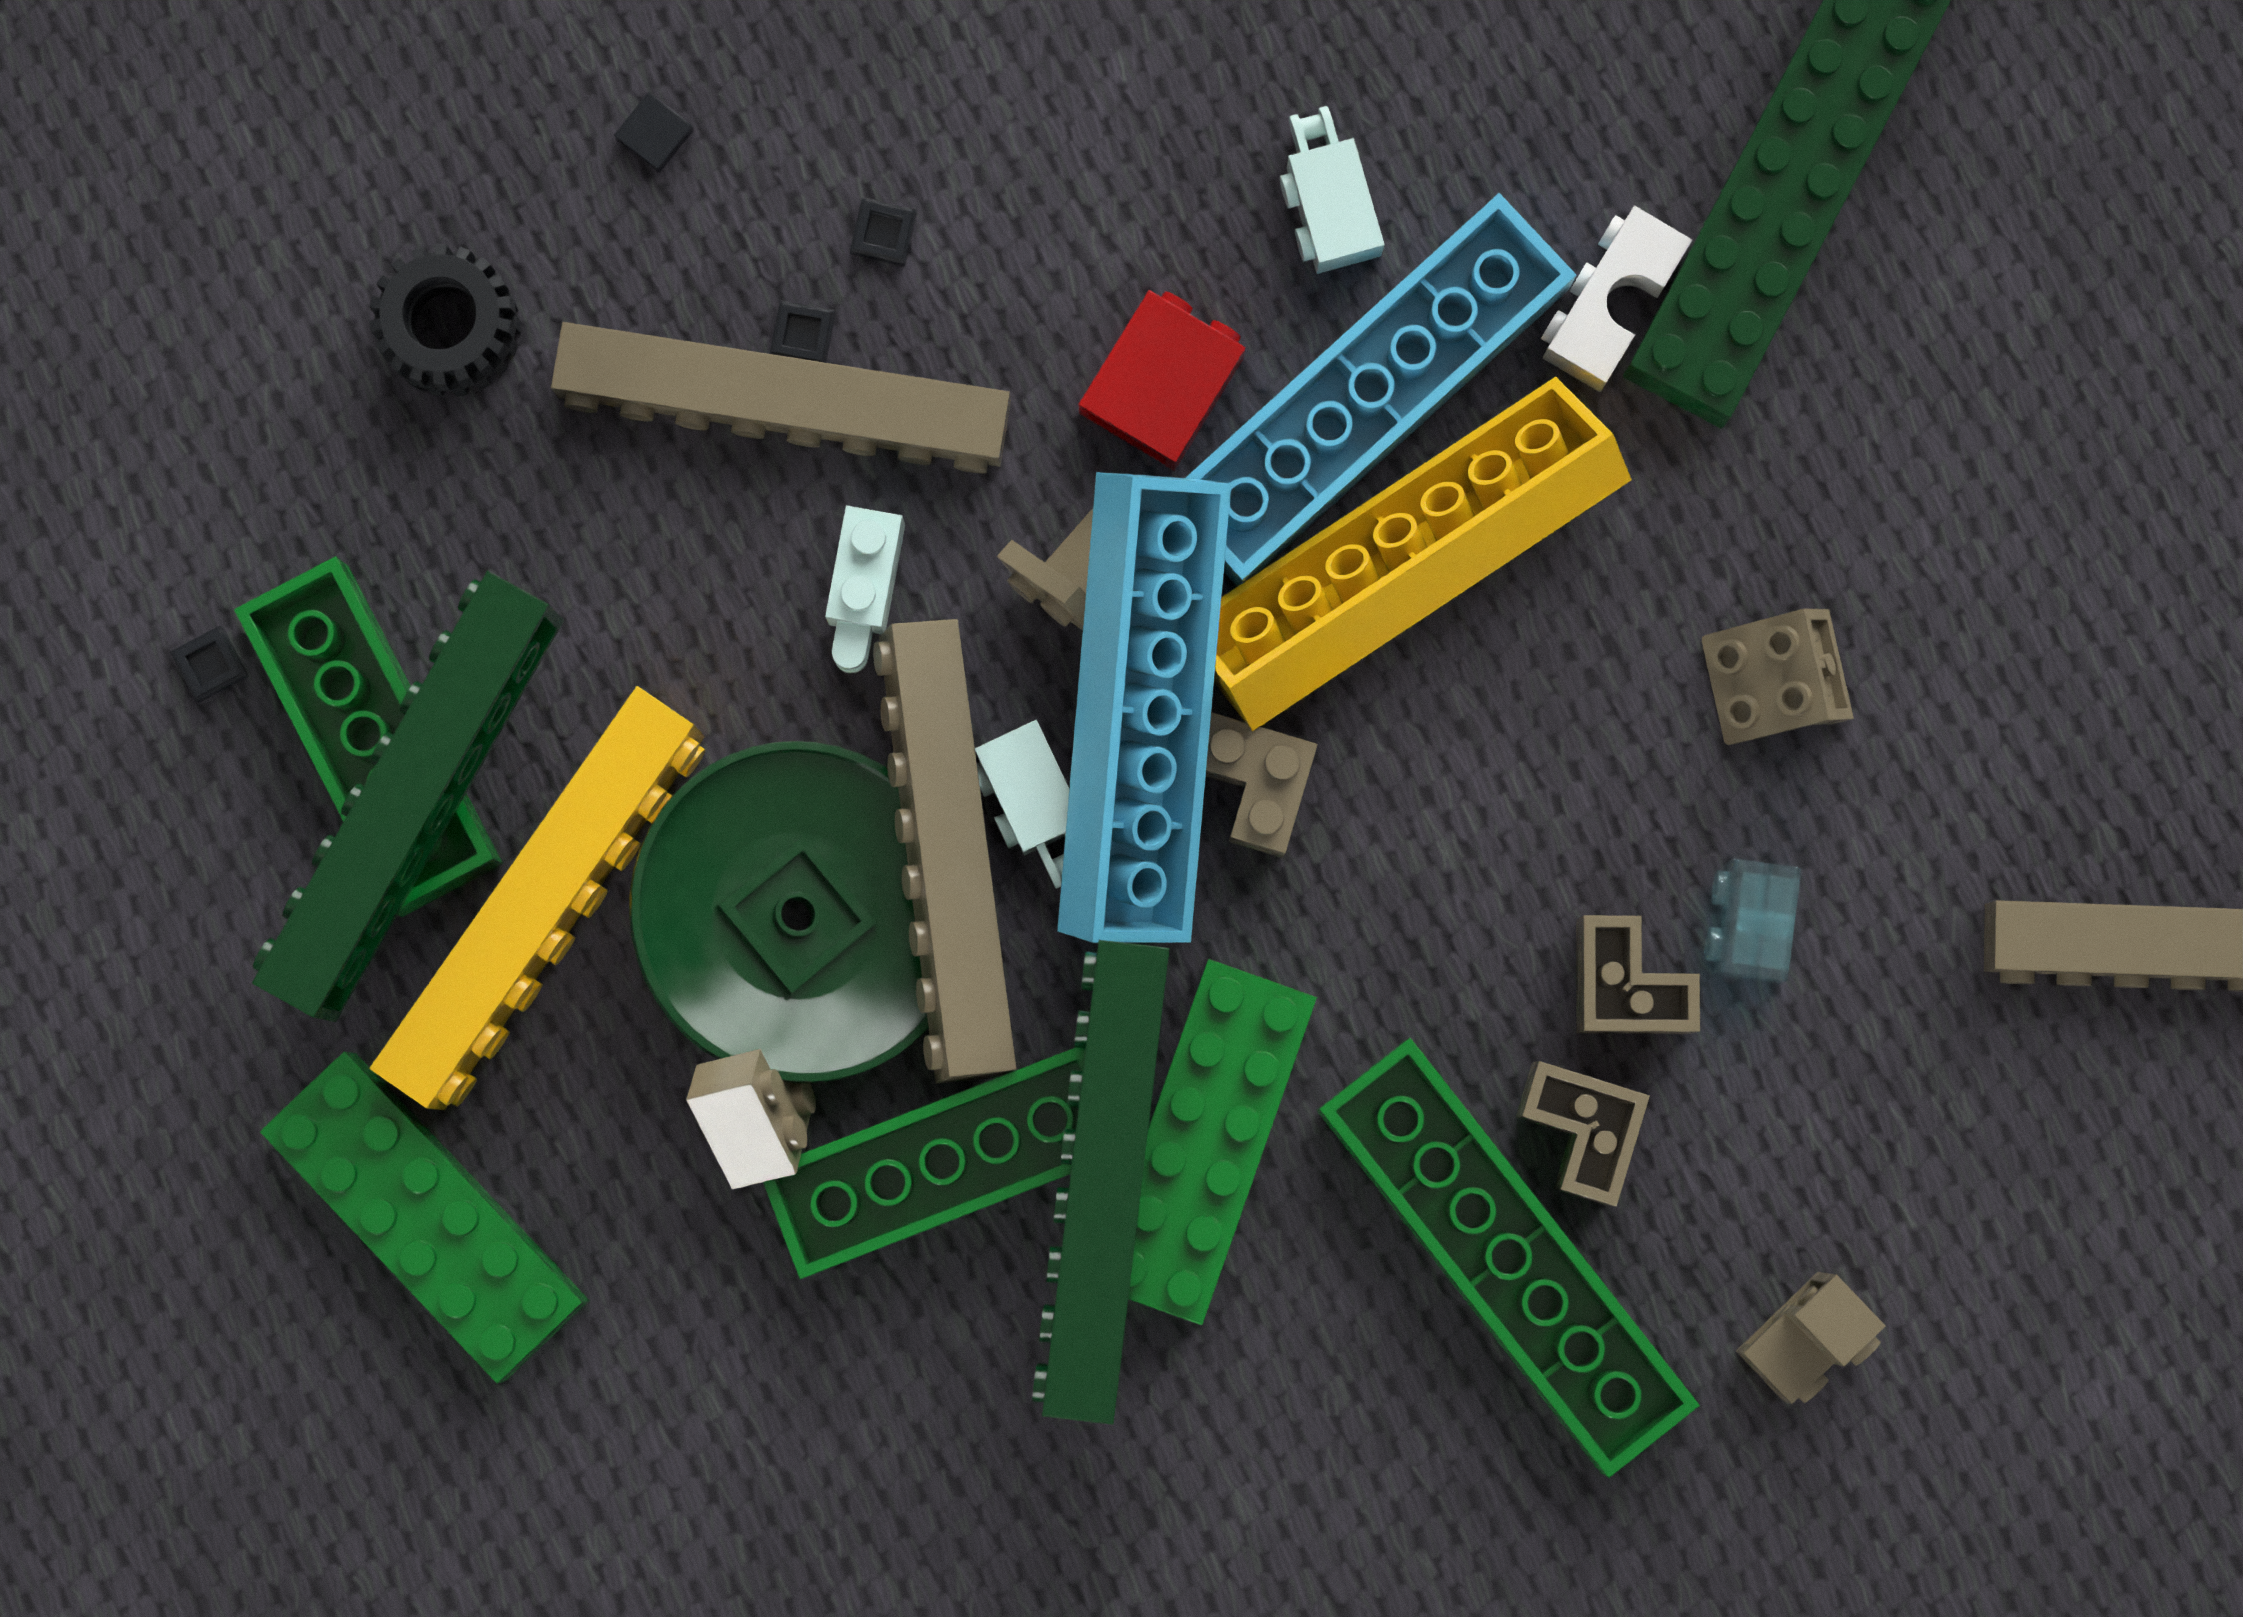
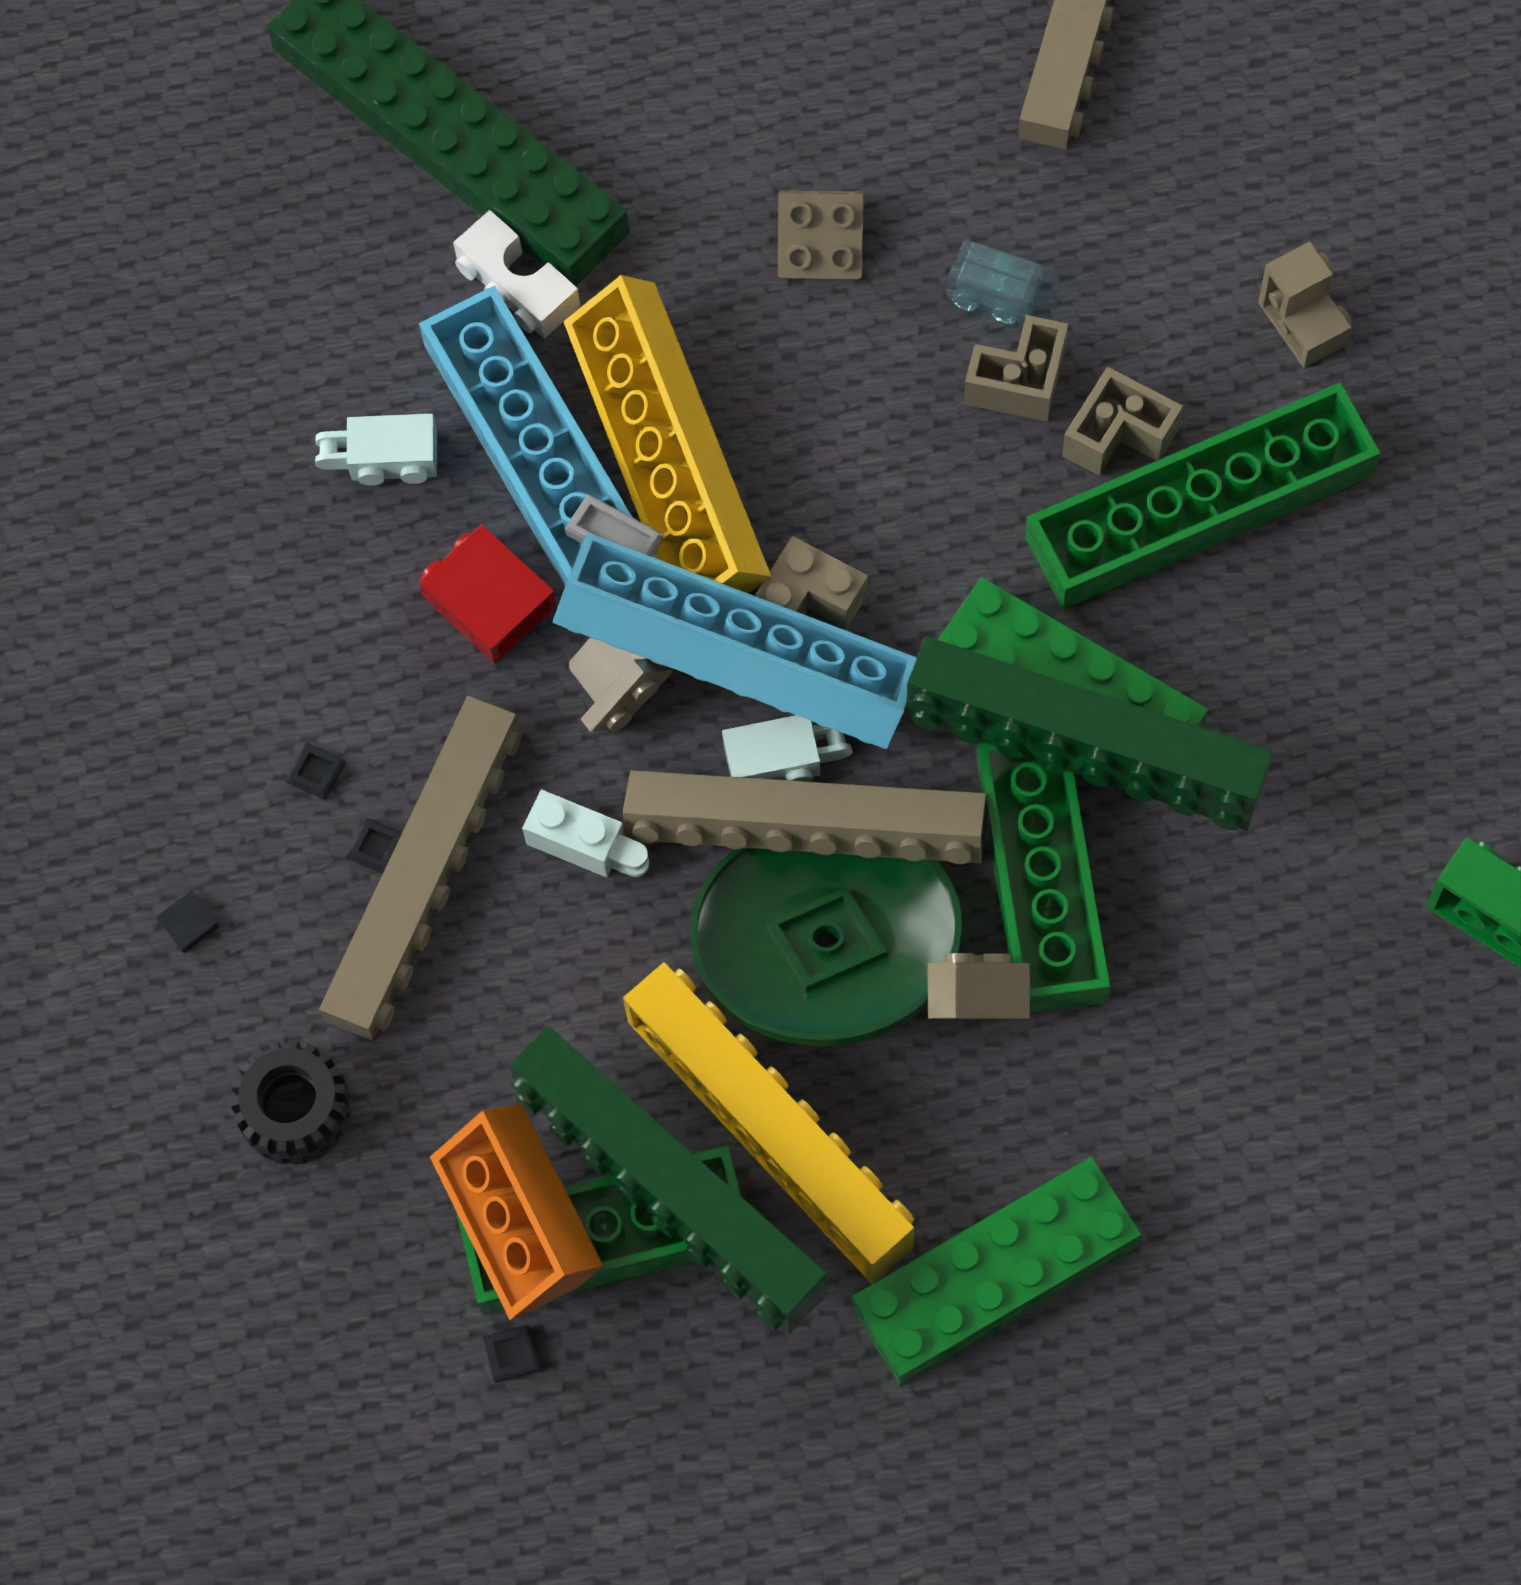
camera: 70 degrees left, 15 degrees down
(344, 627) = (515, 1210): none -> orange slope
(1259, 516) = (613, 525): none -> light grey tile

